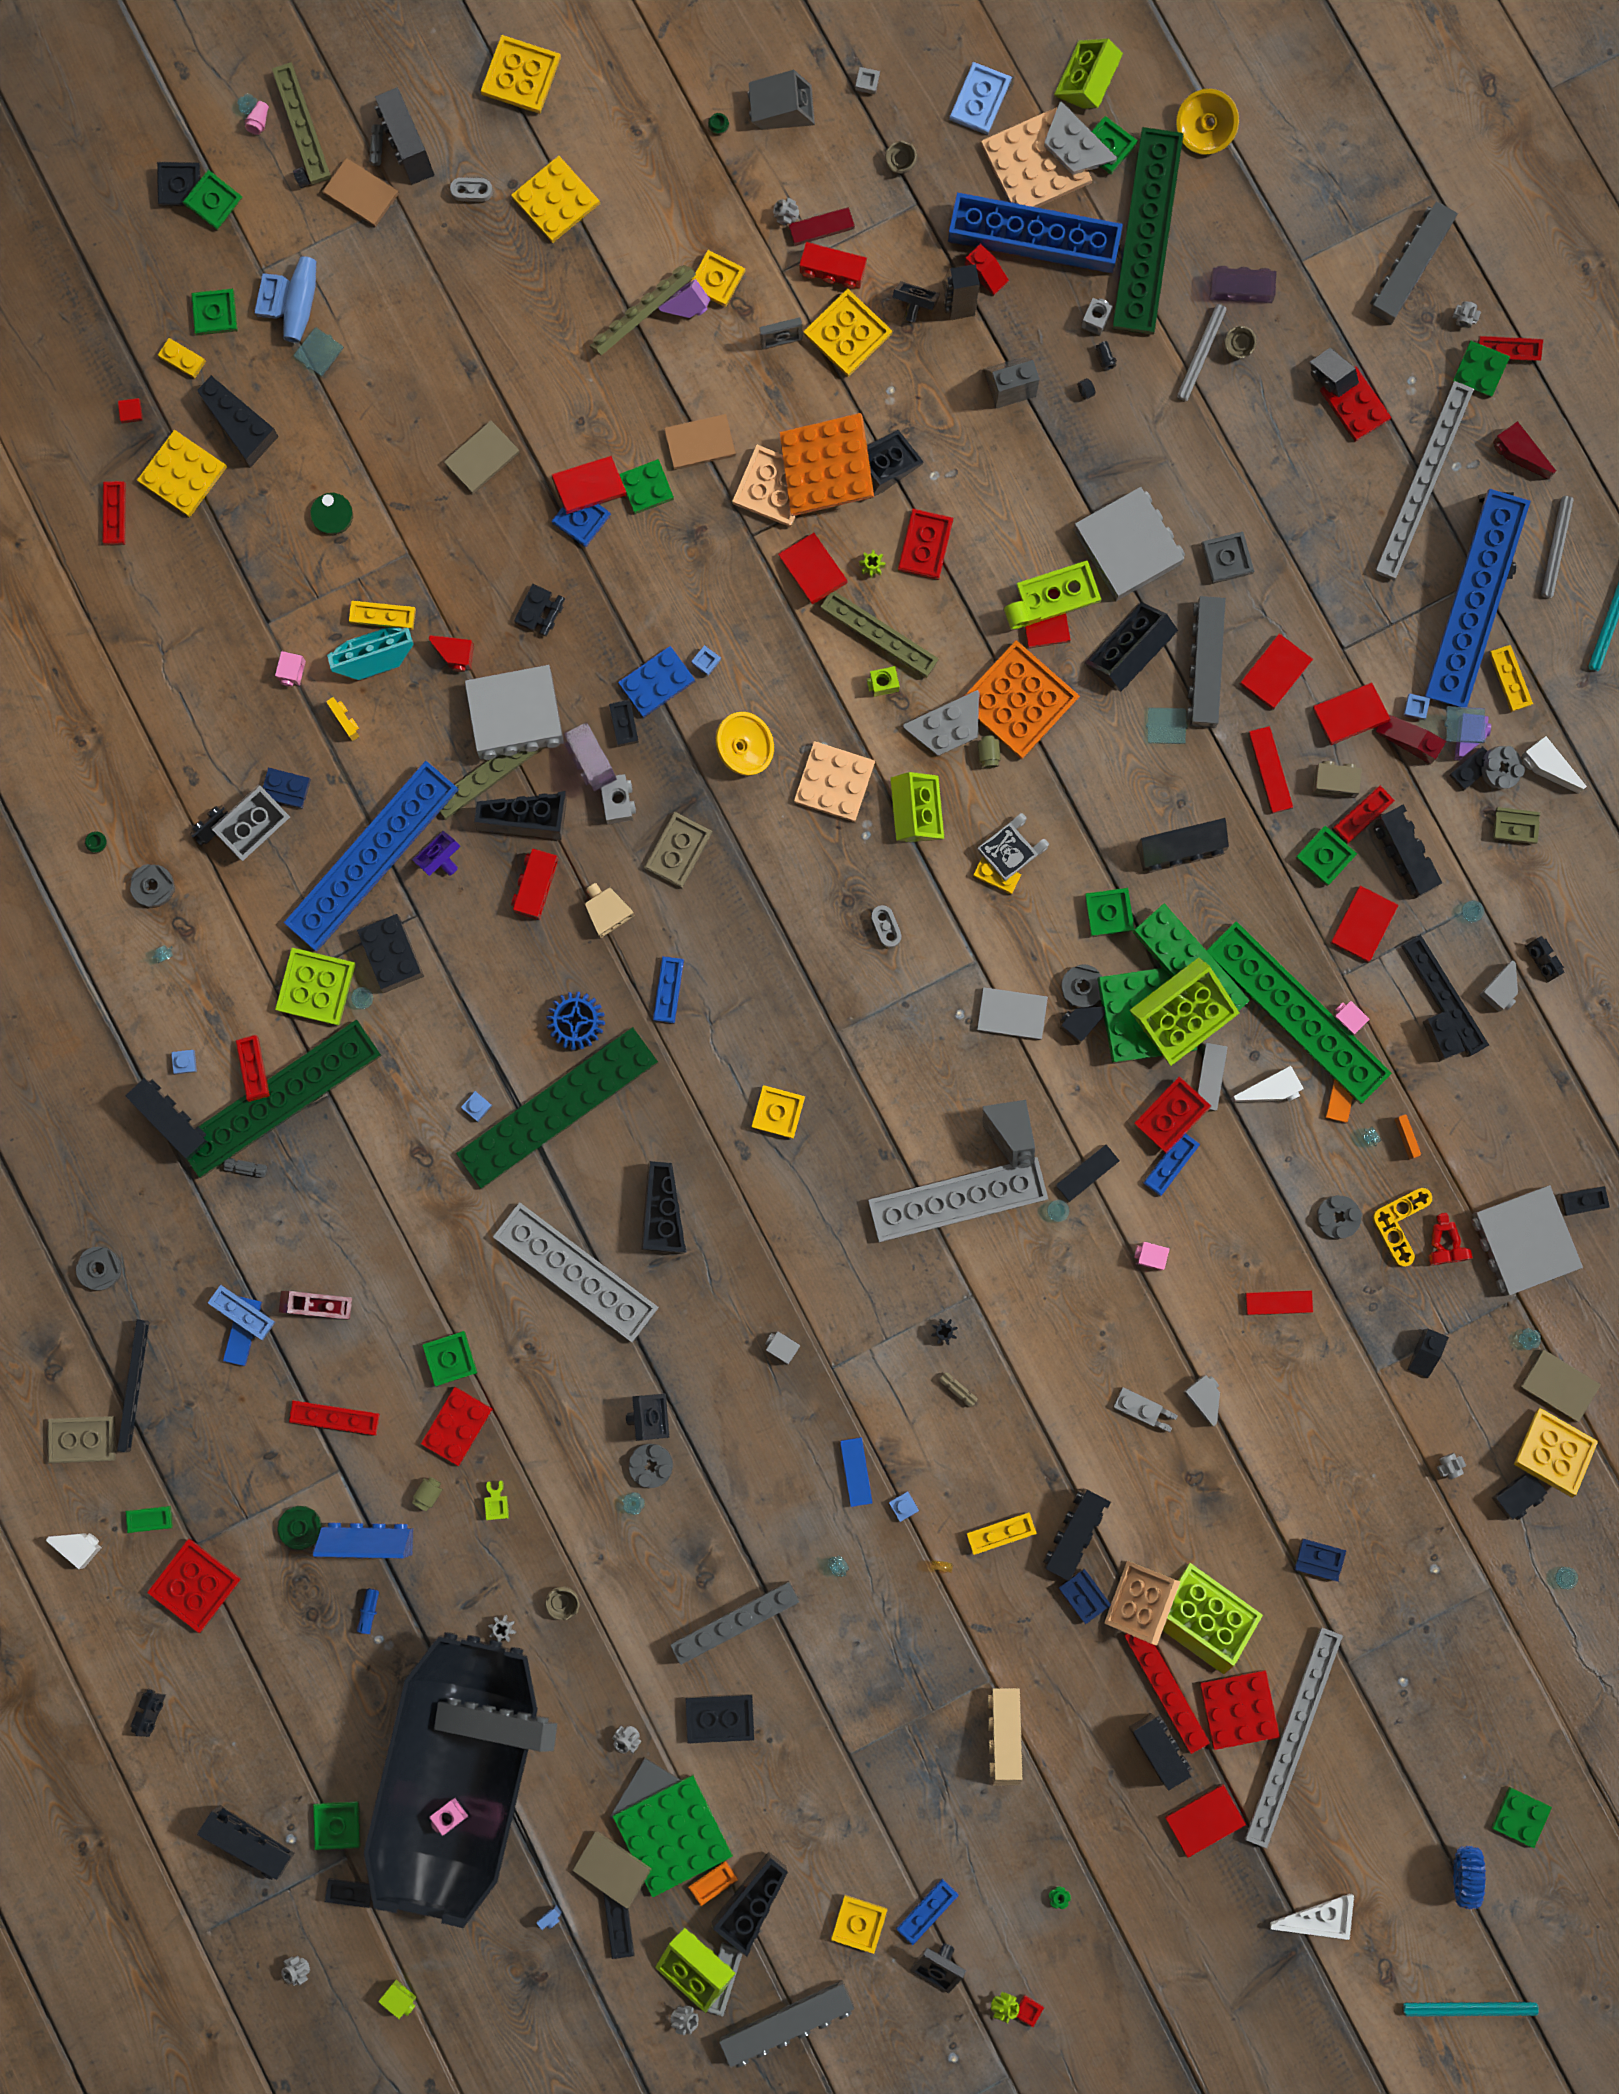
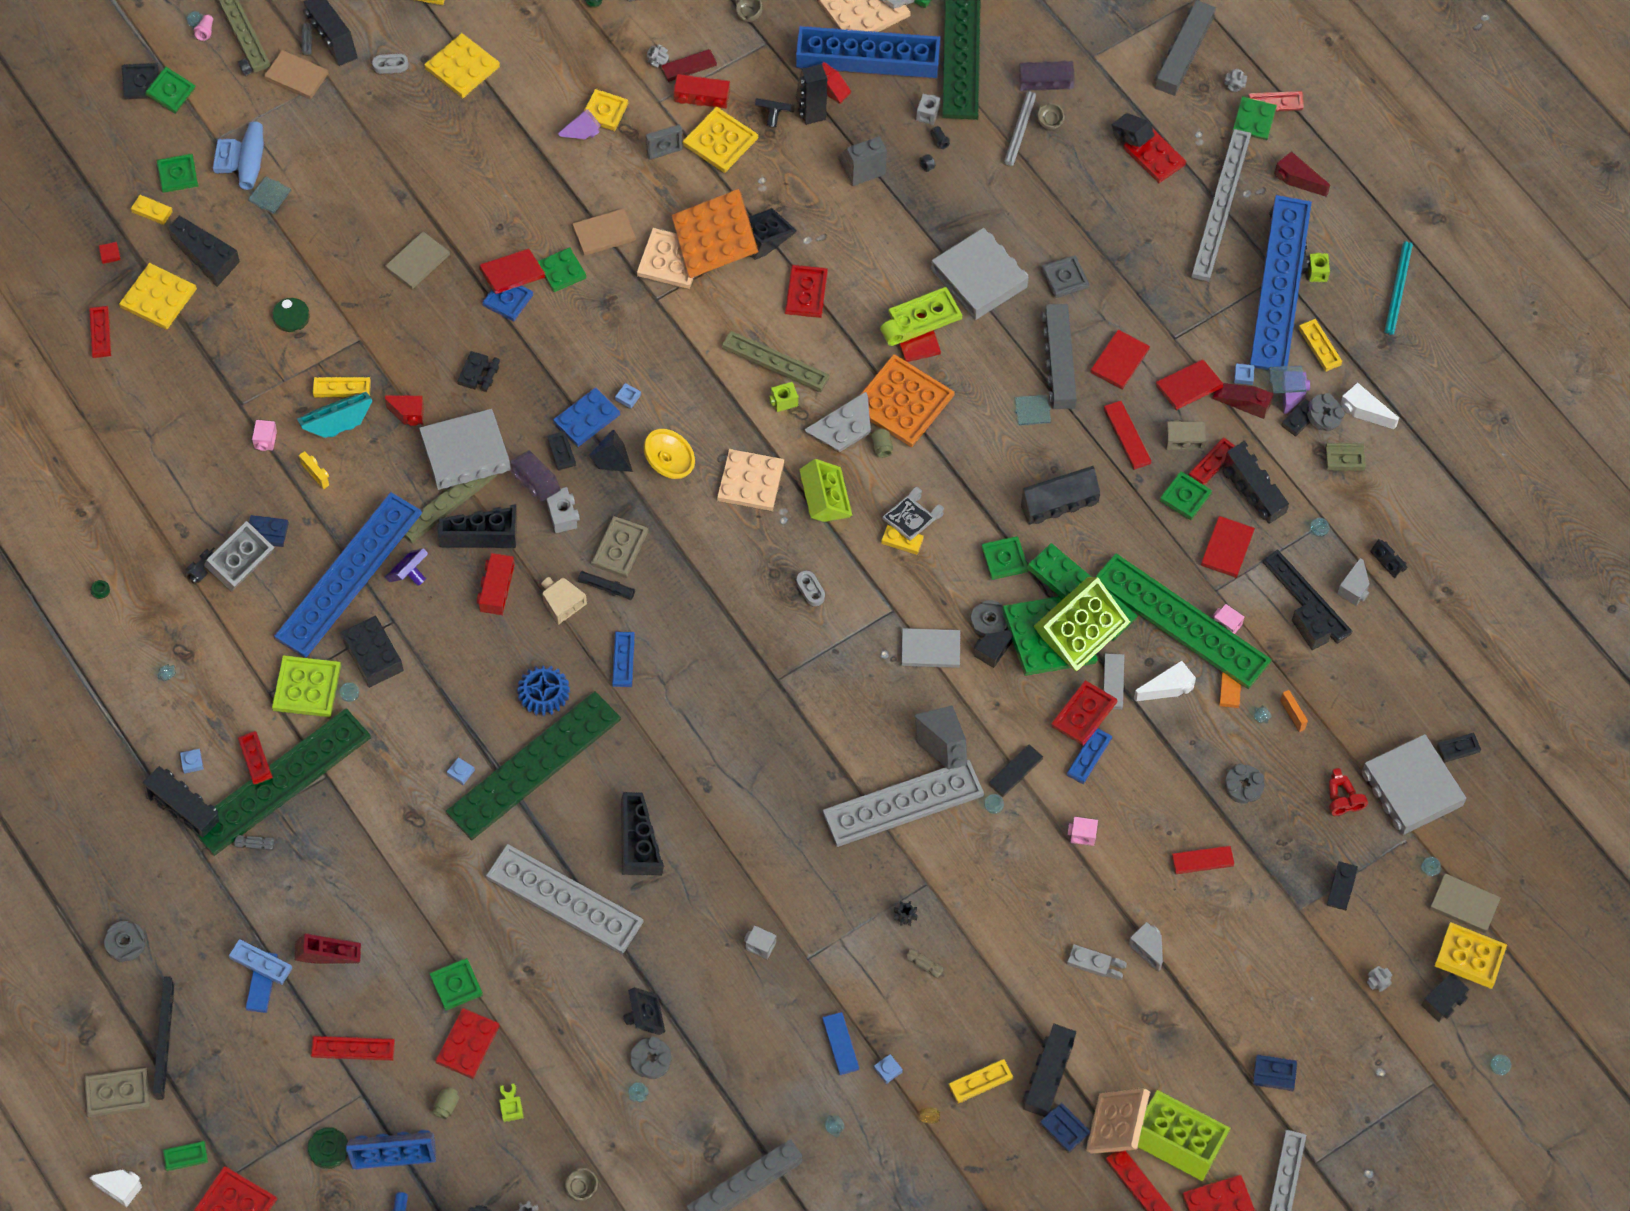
camera: 10 degrees left, 20 degrees down
(153, 873) = (153, 629): dark grey plate -> none
(638, 313) = (538, 142): olive plate -> none
(666, 902) = (613, 588): none -> black pin
(680, 733) = (611, 454): none -> black slope
(778, 1112) = (733, 747): yellow plate -> none
(813, 568) = (712, 316): red tile -> none
(872, 558) = (762, 308): lime gear -> none
(1131, 646) = (994, 350): black slope -> none
(1393, 1217) = (1294, 779): yellow beam -> none
(1524, 585) = (1321, 273): none -> lime brick
(1557, 547) = (1341, 248): light grey axle -> none

